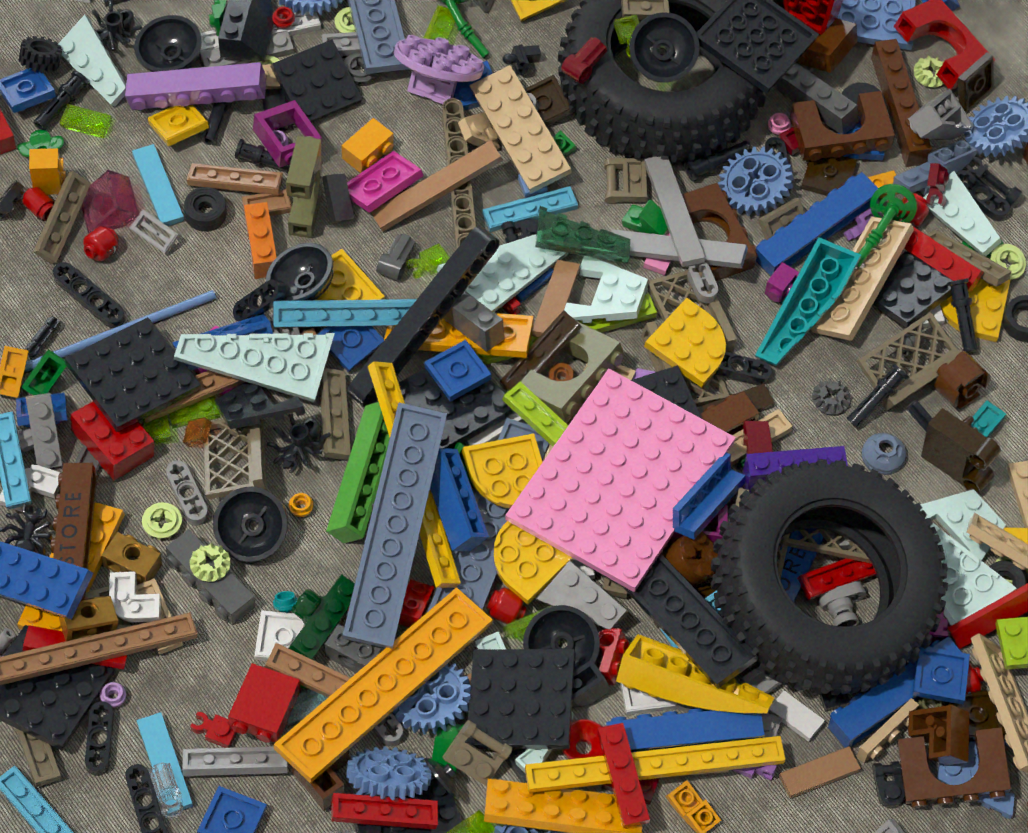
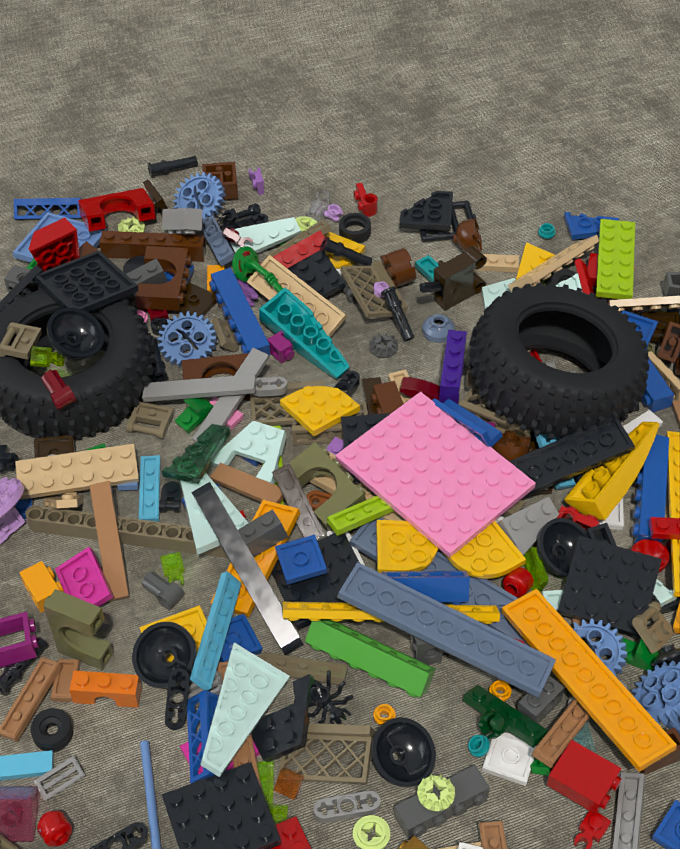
camera: 70 degrees left, 10 degrees down
(904, 365) = (379, 287): none -> lavender plate

